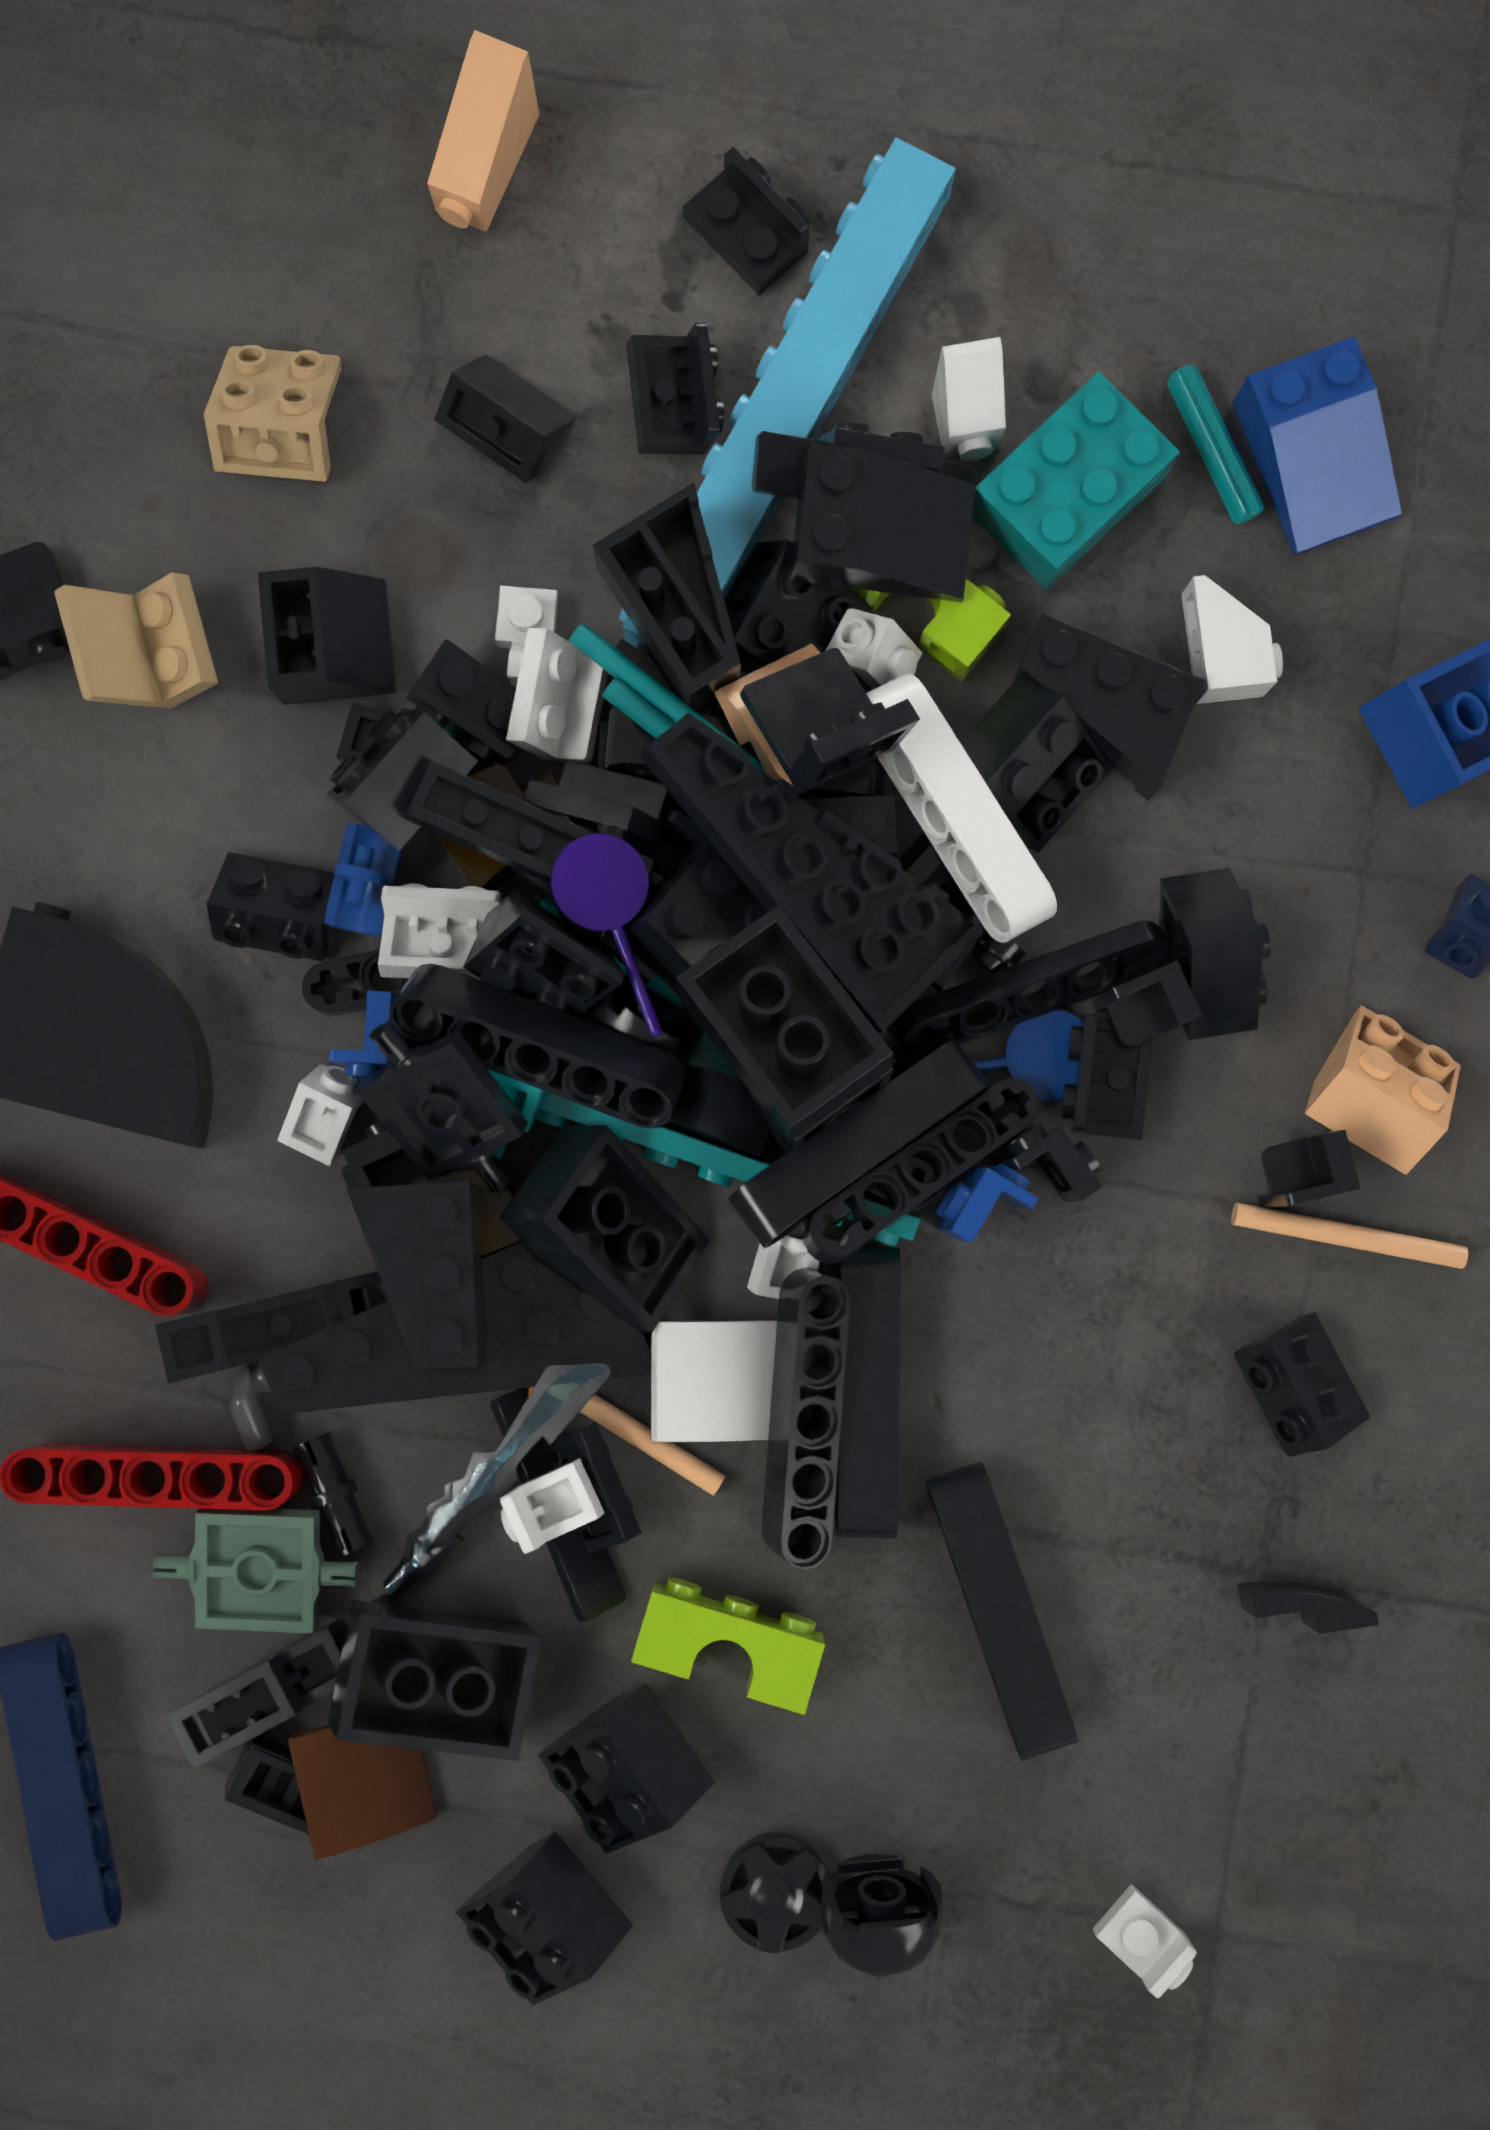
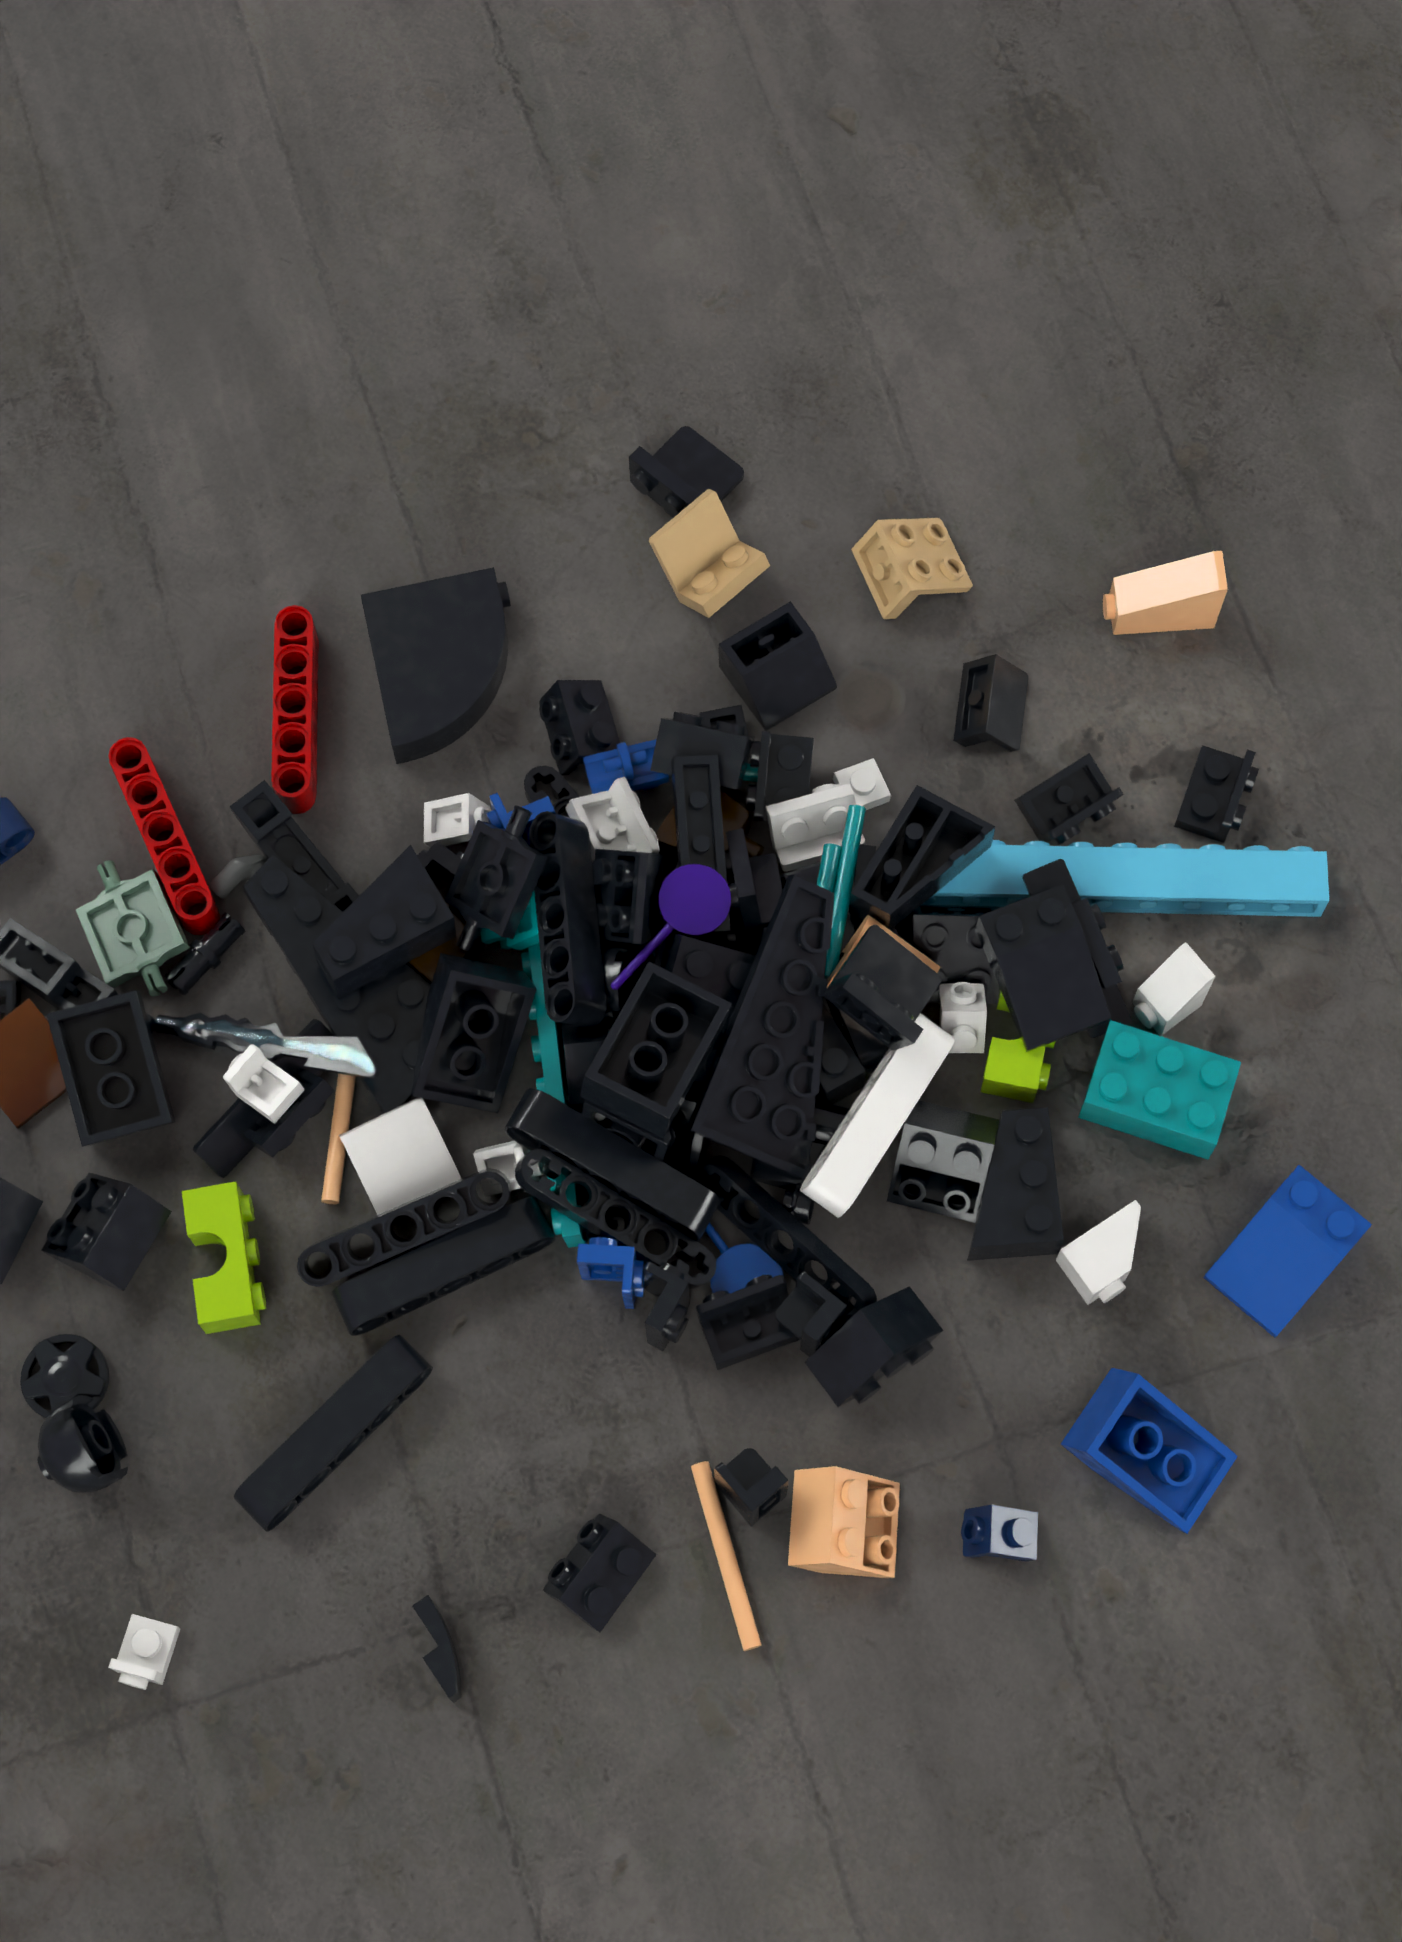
camera: 65 degrees right, 15 degrees down
(1215, 444) = (1248, 1178): teal axle -> none

